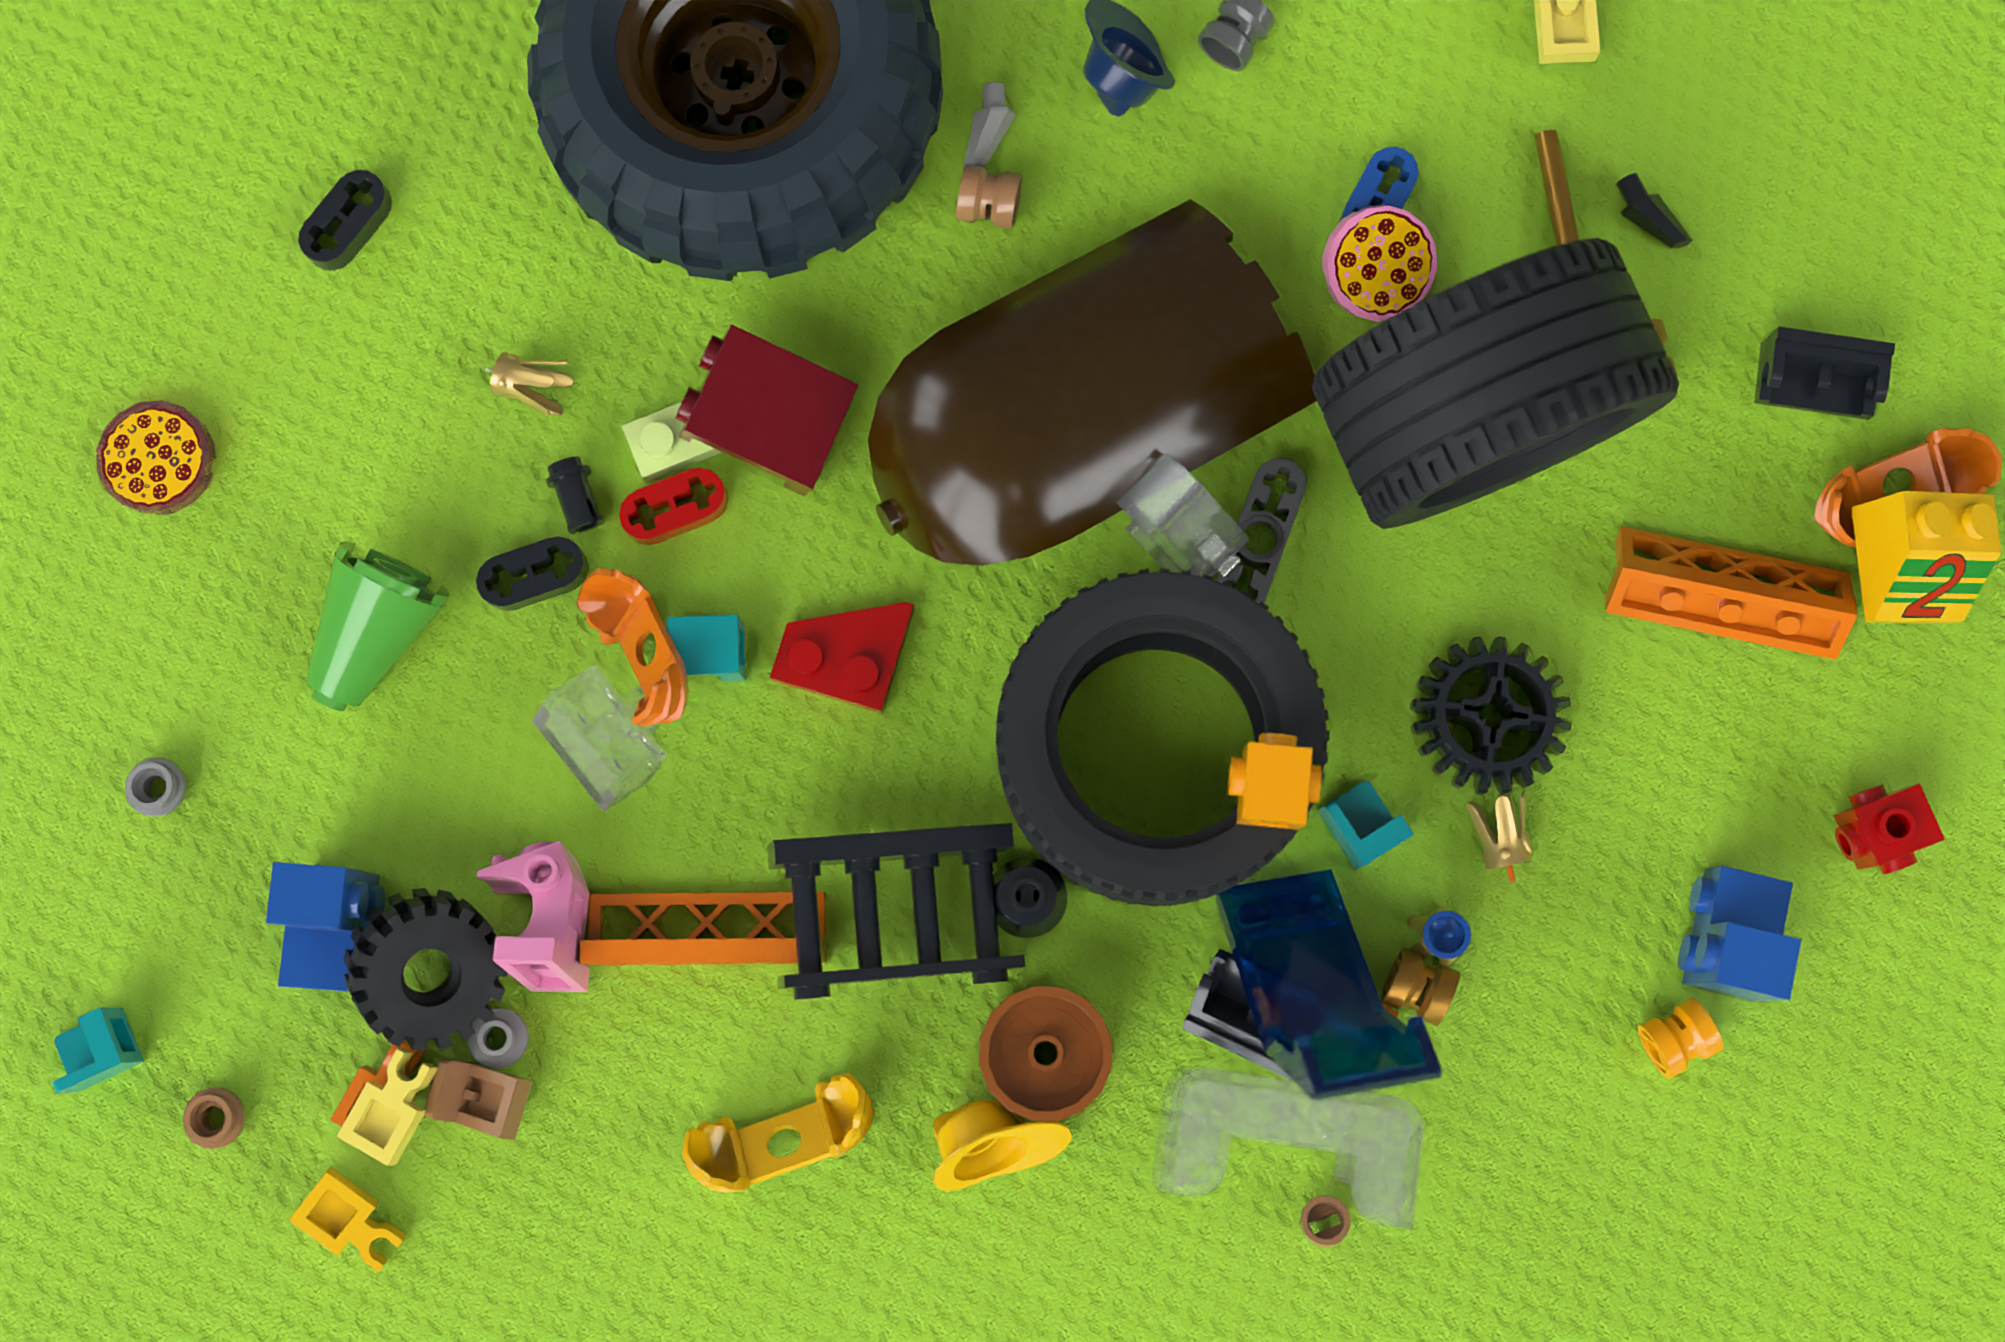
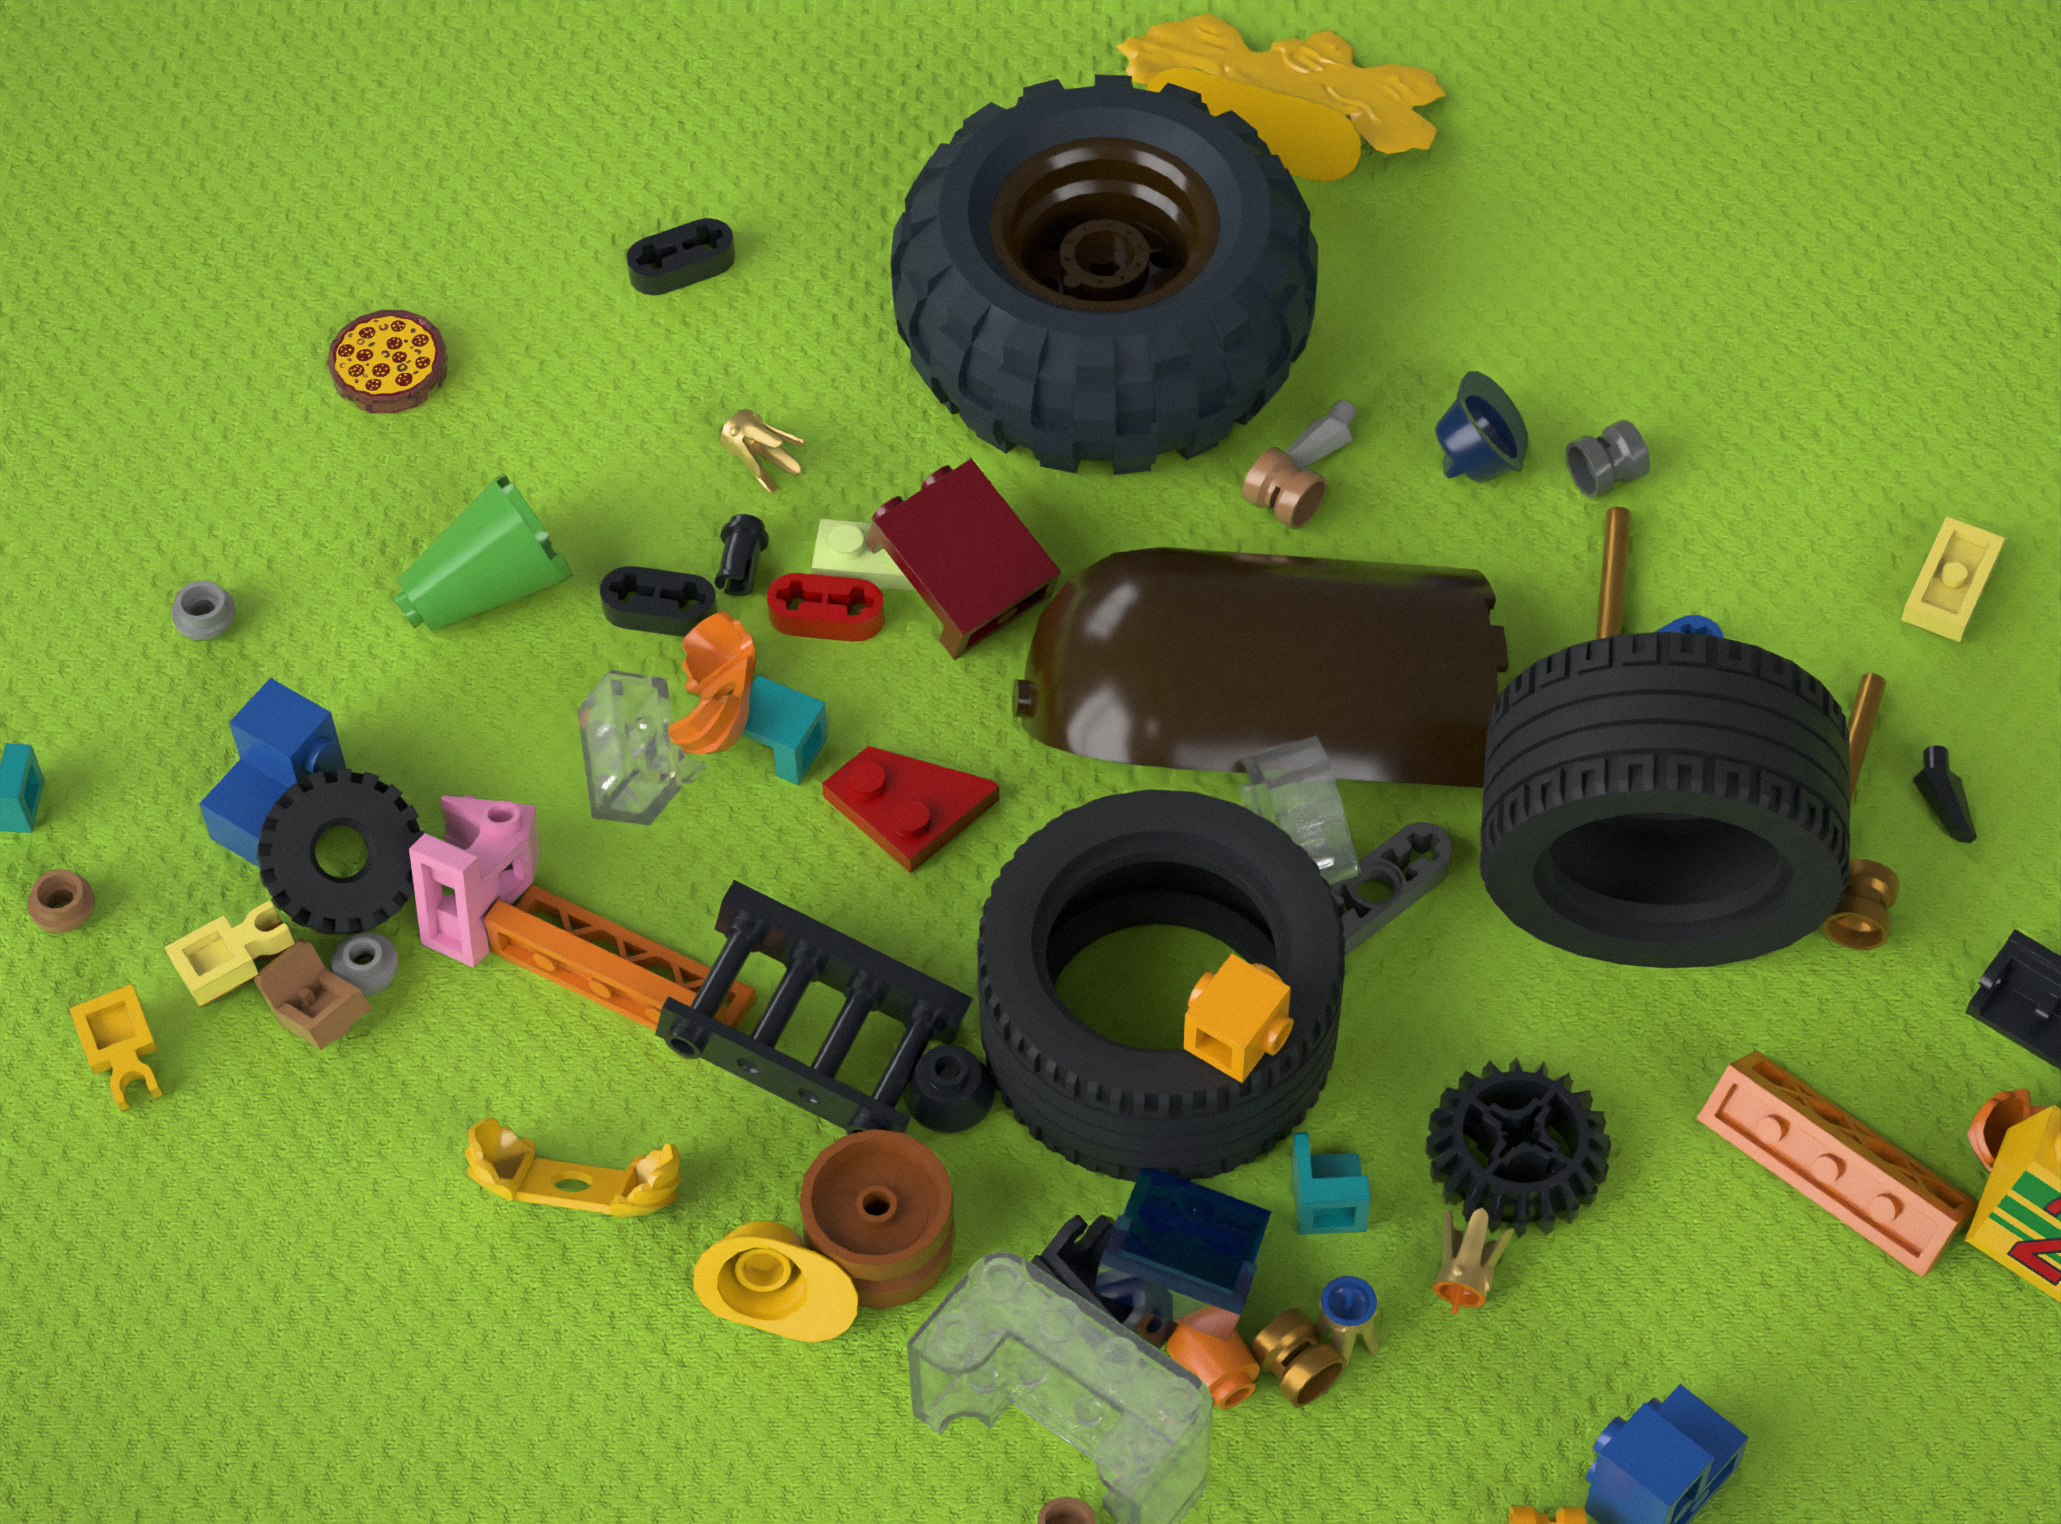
camera: 25 degrees right, 25 degrees down
(1298, 151) = (1613, 572): none -> pearl gold bar
(1886, 828) = (1884, 1445): red brick -> none

